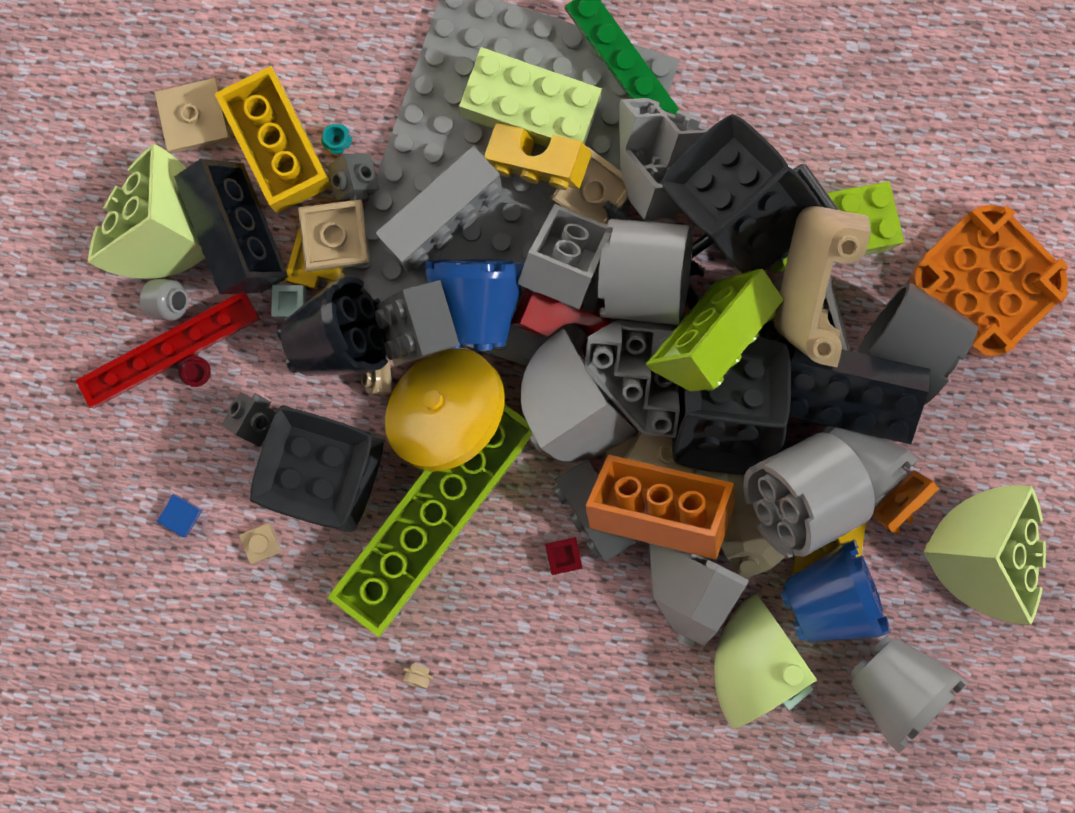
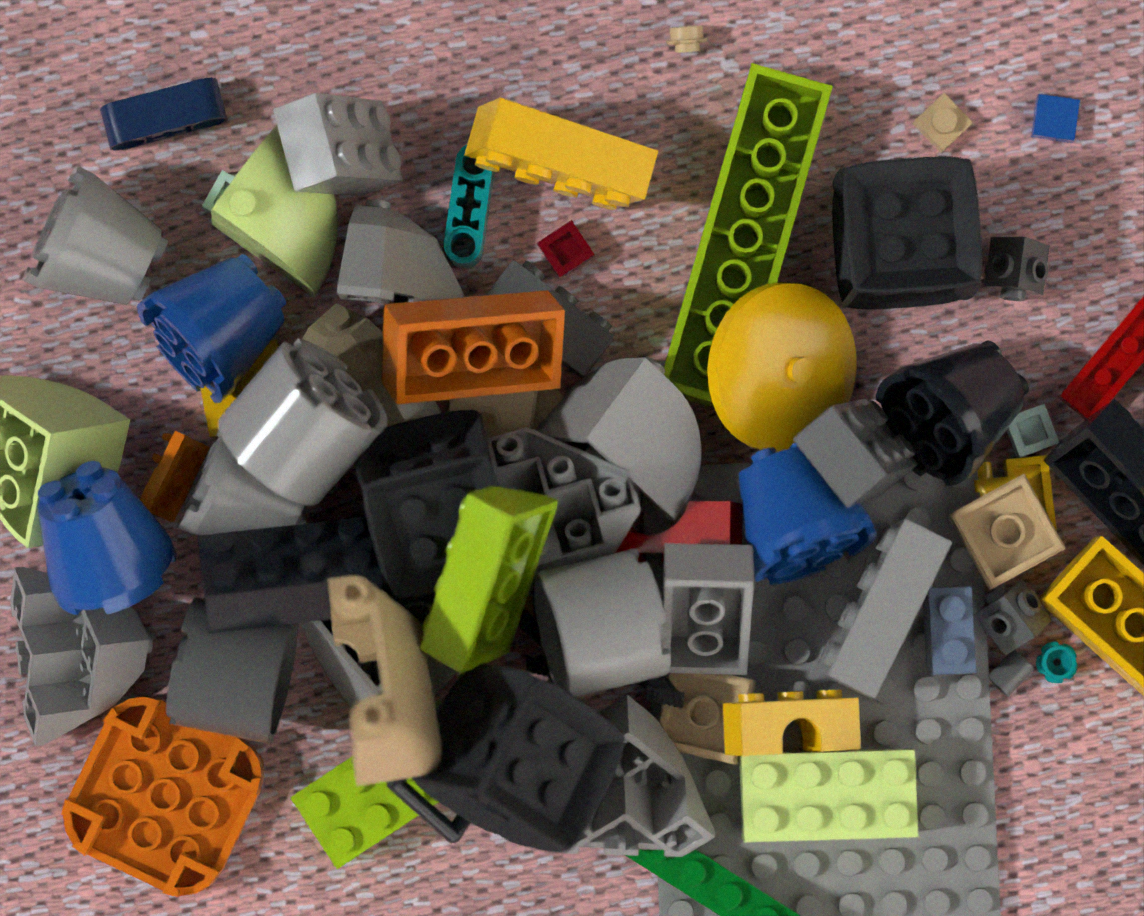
camera: 160 degrees right, 0 degrees up
(194, 371) = (1111, 300): dark red plate -> none
(371, 142) = (1010, 673): none -> dark grey hinge
(378, 381) = (875, 372): tan plate -> none
(401, 179) = (949, 631): none -> sand blue brick
(546, 628) = (560, 153): none -> yellow brick
(624, 625) = (456, 214): none -> teal beam
(703, 694) = (338, 145): none -> light grey brick
(816, 769) = (163, 114): none -> dark blue beam
(979, 468) = (100, 541): none -> blue cone
(1016, 406) = (71, 660): none -> light grey brick

